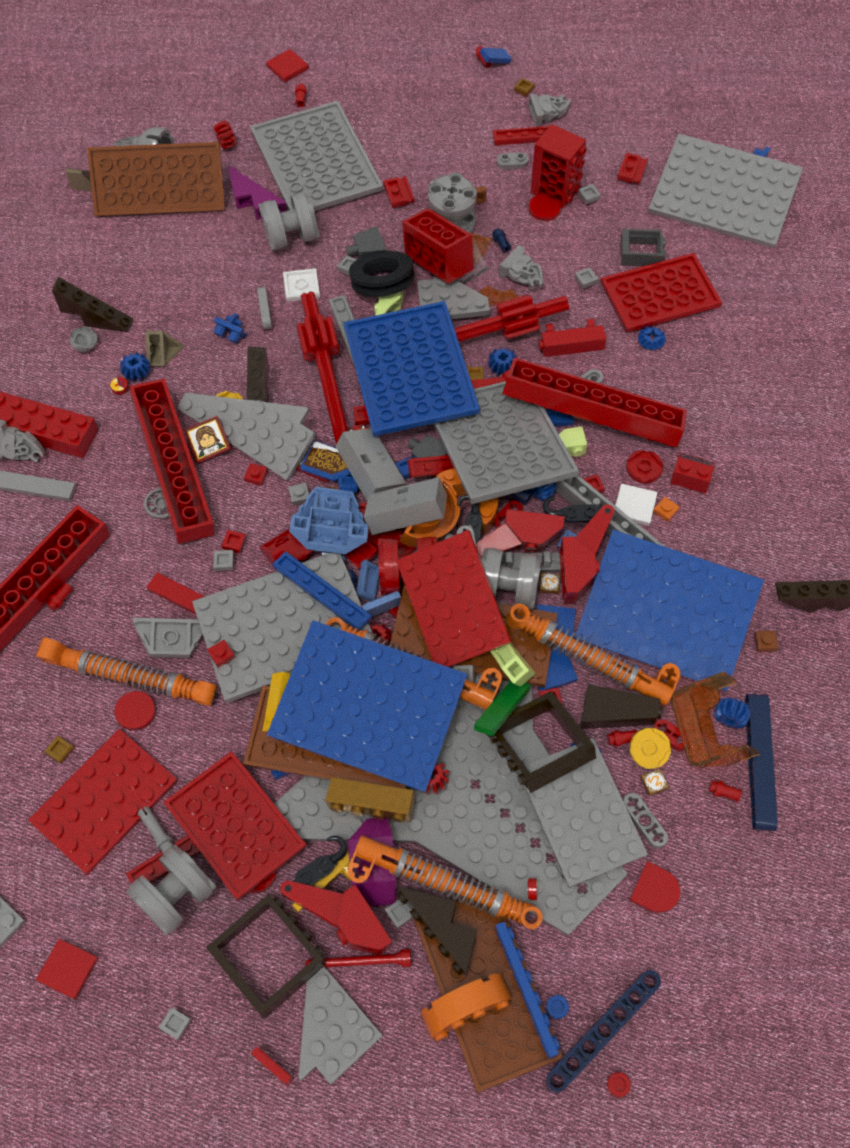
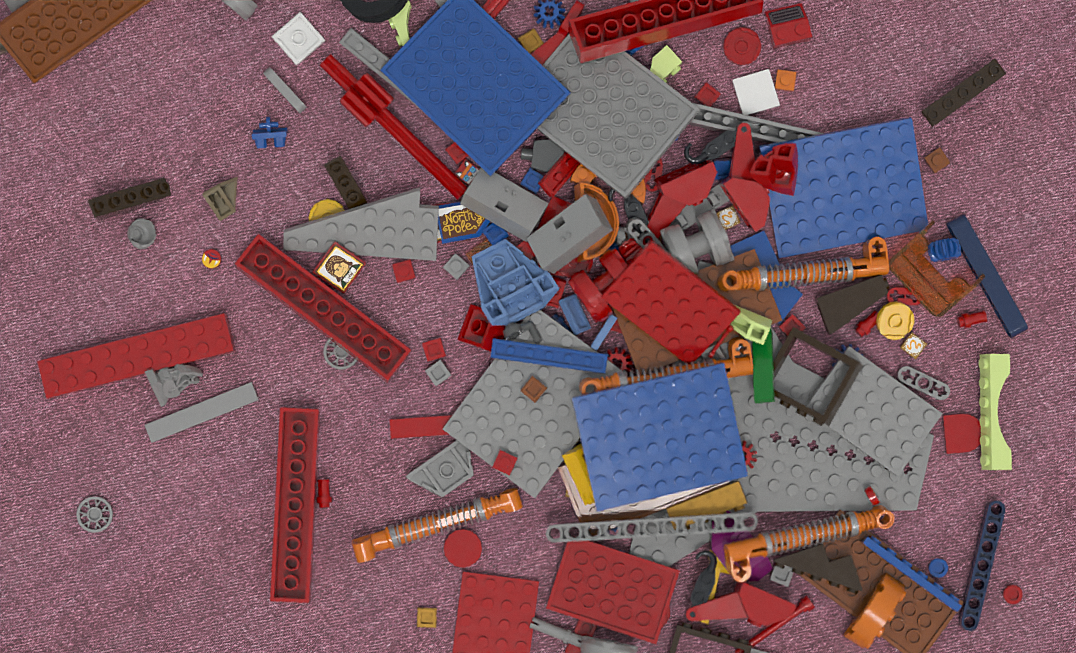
camera: 30 degrees left, 25 degrees up
(135, 366) = (206, 230): blue gear -> none
(289, 609) = (533, 389): none -> dark orange tile
(306, 554) = (514, 330): none -> dark grey plate
(311, 789) = (642, 531): none -> light grey beam
(492, 655) = (729, 329): none -> red hinge
(618, 550) = (777, 169): none -> red brick
(680, 924) = (994, 449): none -> yellowish green arch

